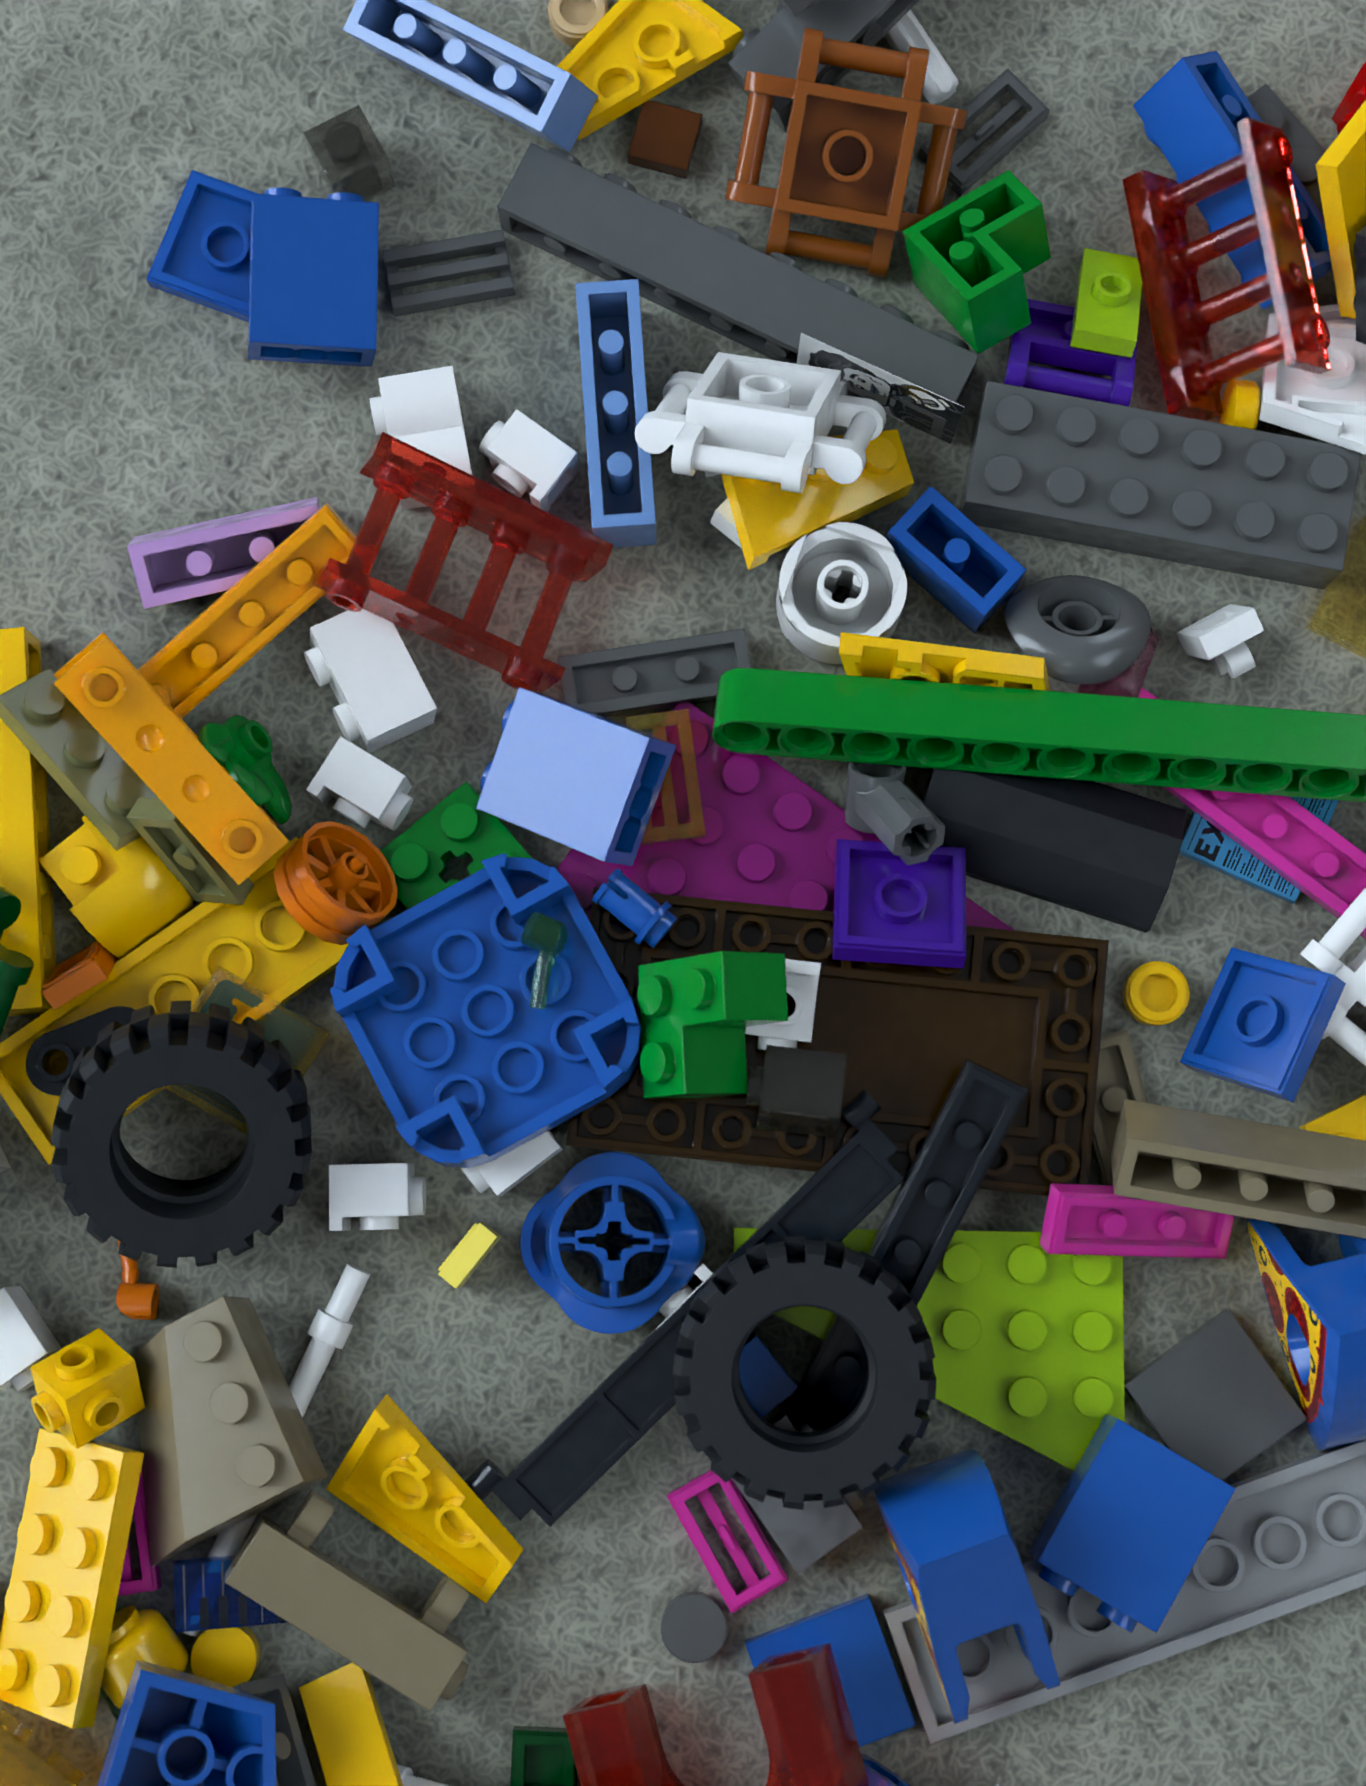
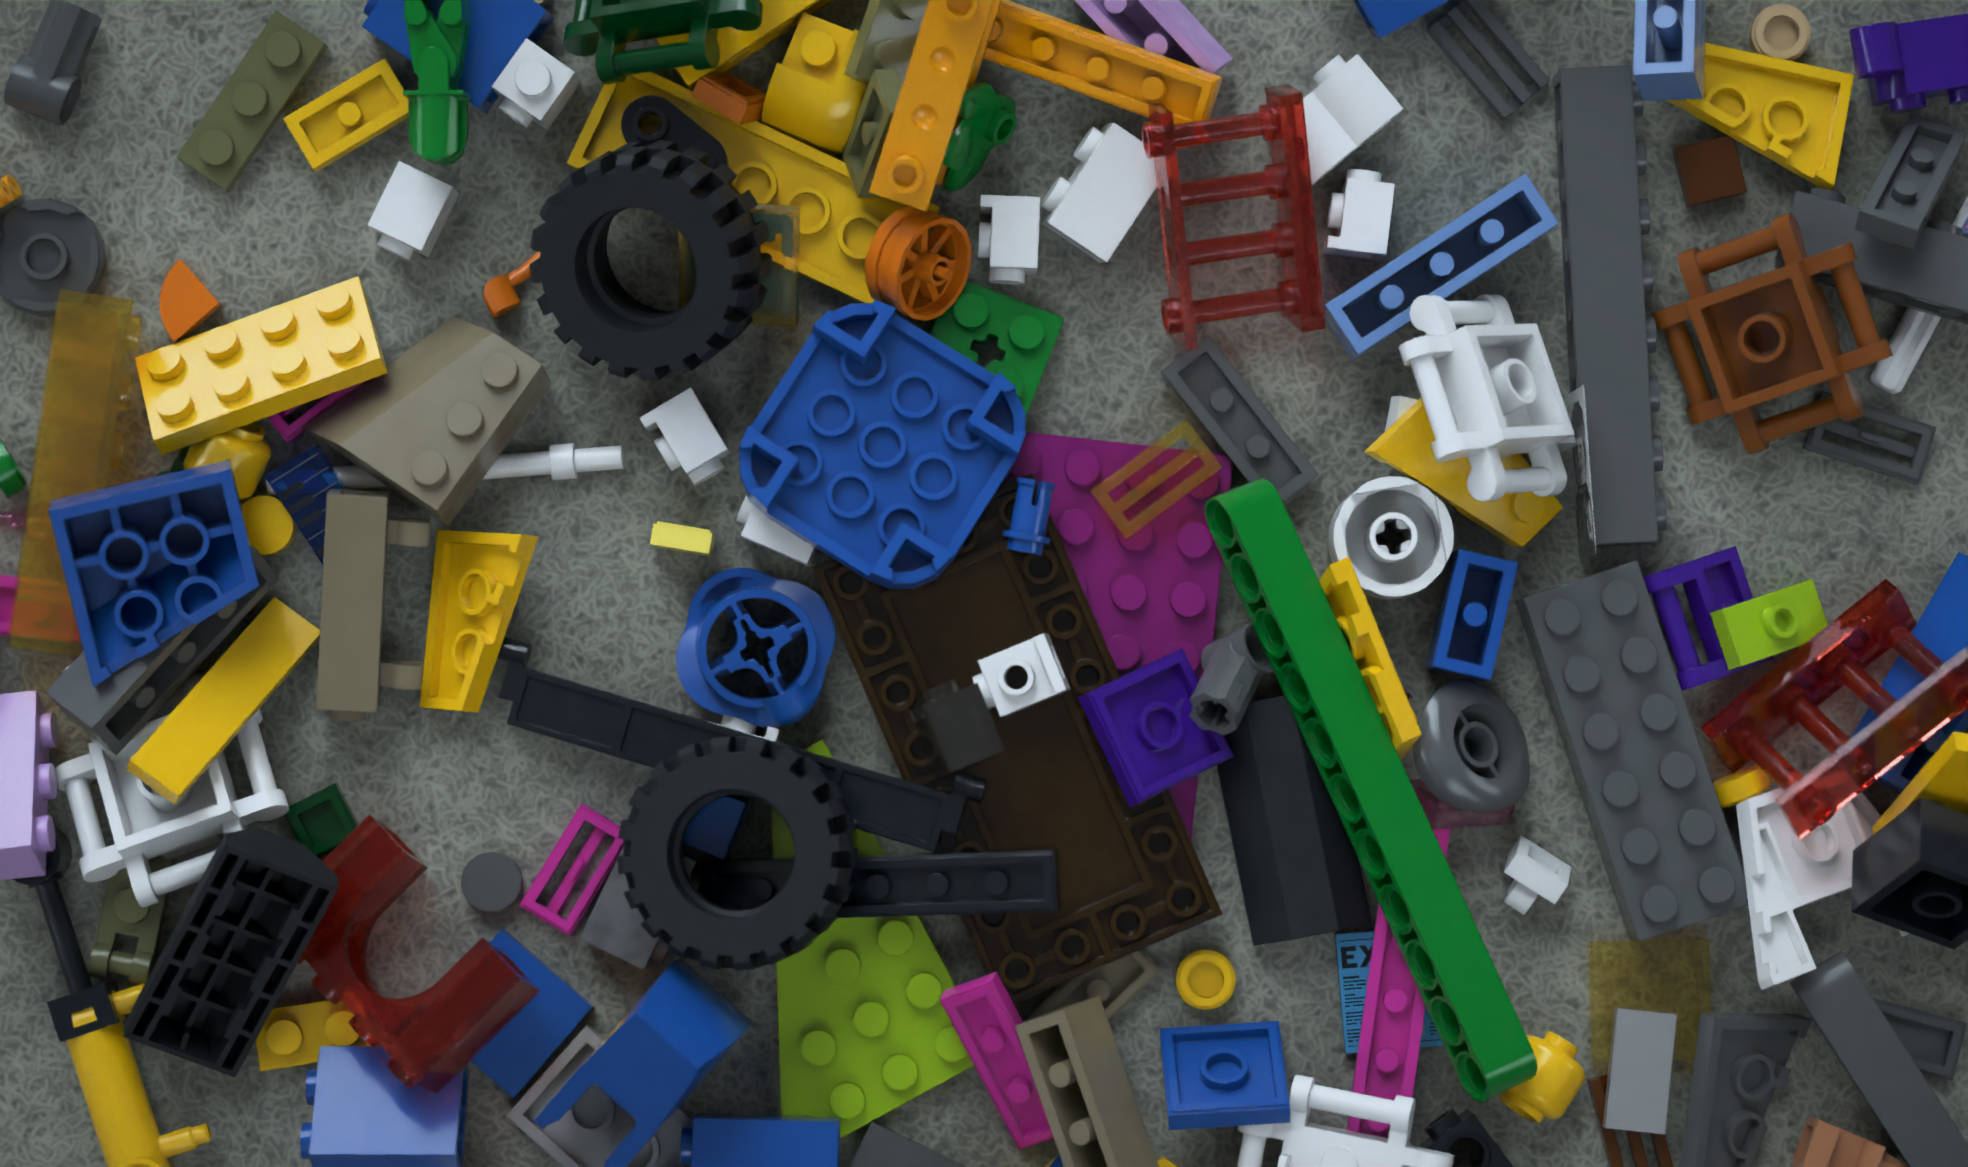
camera: 60 degrees right, 5 degrees up
(86, 1388) = (411, 298): yellow brick -> none
(549, 939) = (965, 461): hand -> none
(575, 777) = (1112, 406): brick -> none
(698, 1017) = (968, 616): green brick -> none
(975, 257) = (1744, 488): green brick -> none

